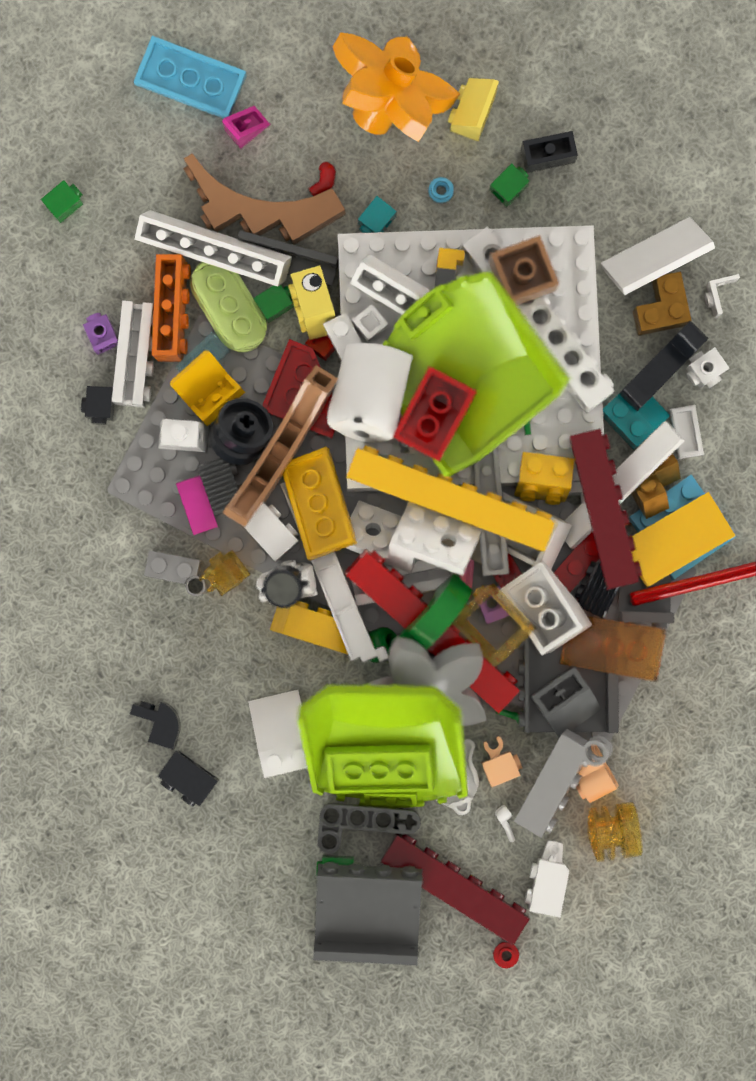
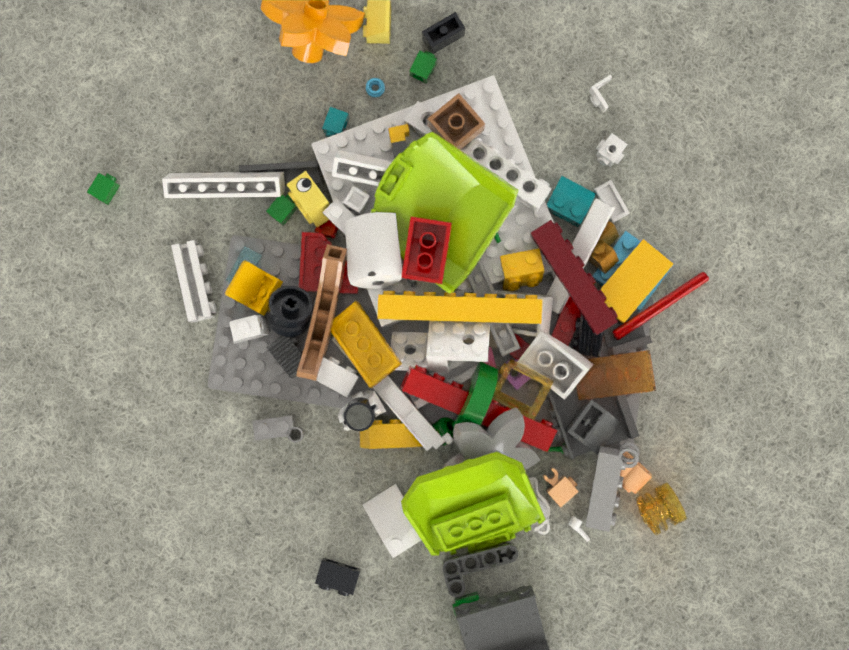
camera: 15 degrees left, 0 degrees up
(98, 404) = (179, 327): black brick -> none
(107, 339) = (170, 277): medium lavender brick -> none
(166, 723) = (307, 540): black brick -> none
(170, 308) = (207, 239): orange brick -> none
(190, 77) = (166, 68): medium azure plate -> none
(196, 505) = (275, 375): dark pink slope -> none
(225, 207) = (224, 152): medium nougat arch -> none
(225, 572) = (313, 417): clear yellow brick -> none
(228, 307) = (250, 223): yellowish green tile -> none
(245, 125) = (217, 89): dark pink slope -> none
(326, 179) = (290, 109): red arm -> none
(458, 890) = (561, 590): dark red brick -> none
(499, 949) = (609, 619): red plate -> none
(549, 881) = (625, 561): white hinge -> none
(657, 255) = (547, 81): white tile -> none
(663, 365) = (579, 159): black beam -> none
(668, 311) = (569, 116): pearl gold brick -> none

